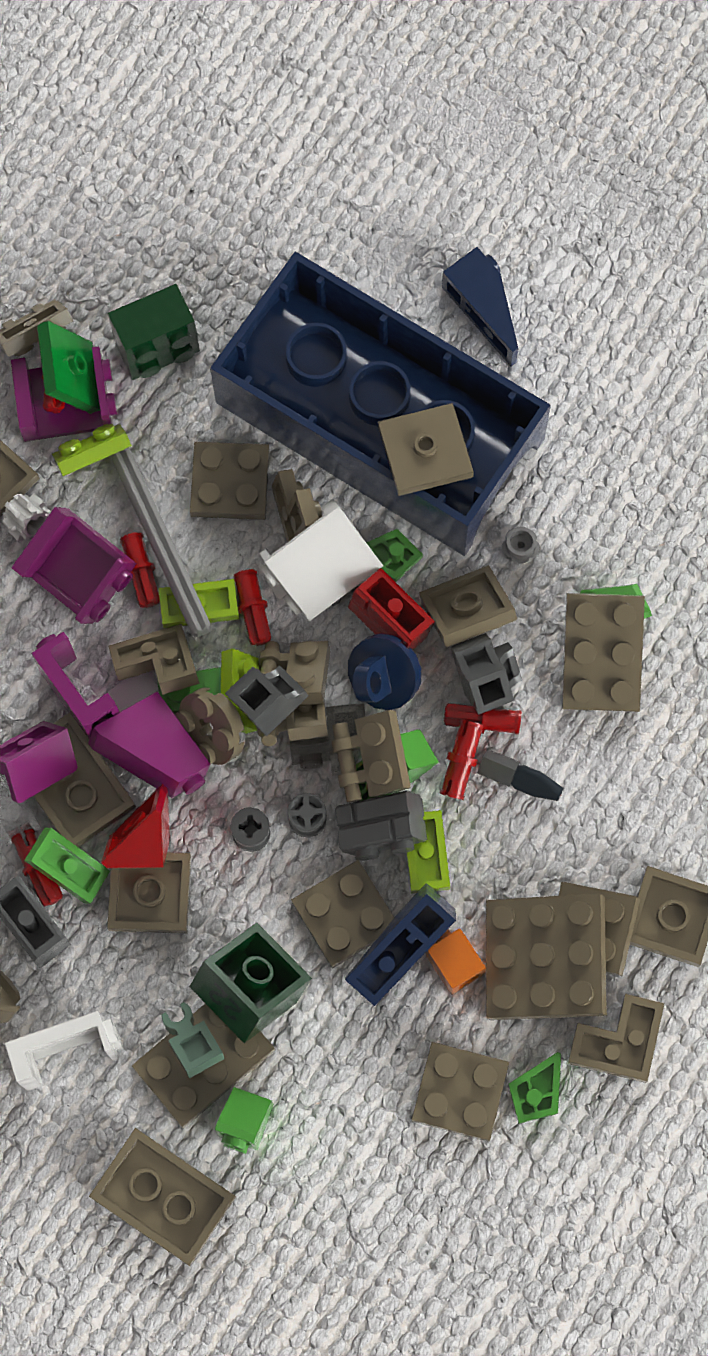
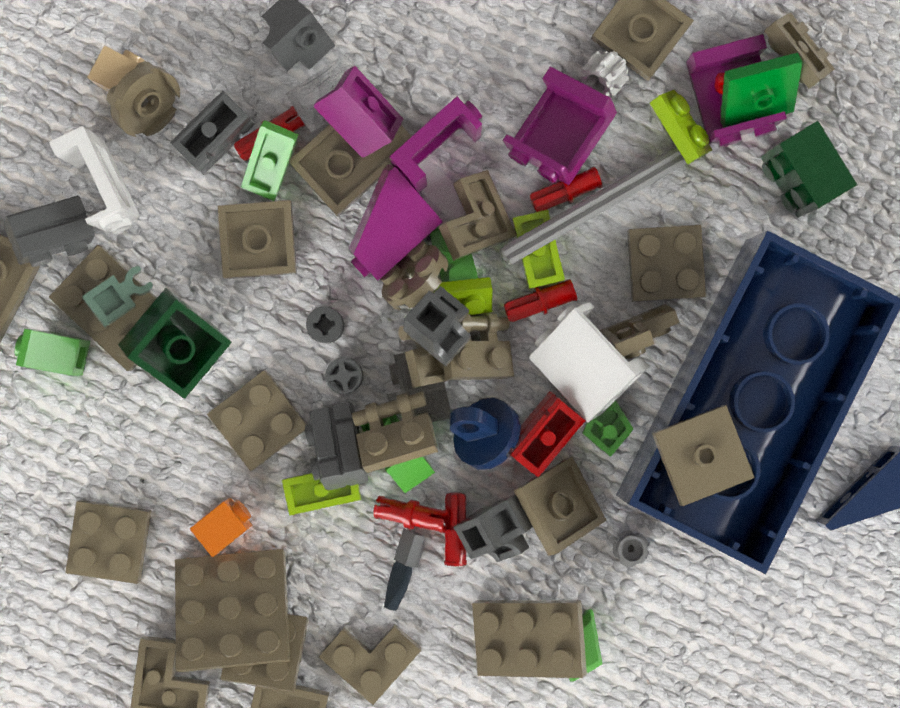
camera: 80 degrees right, 15 degrees up
(110, 1111) = (49, 231): none -> dark grey brick
(142, 837) = (299, 224): red slope -> none
(402, 944) = (229, 479): dark blue slope -> none
(537, 1091) = (115, 611): bright green piece -> none
(625, 818) = (370, 670): none -> dark tan plate

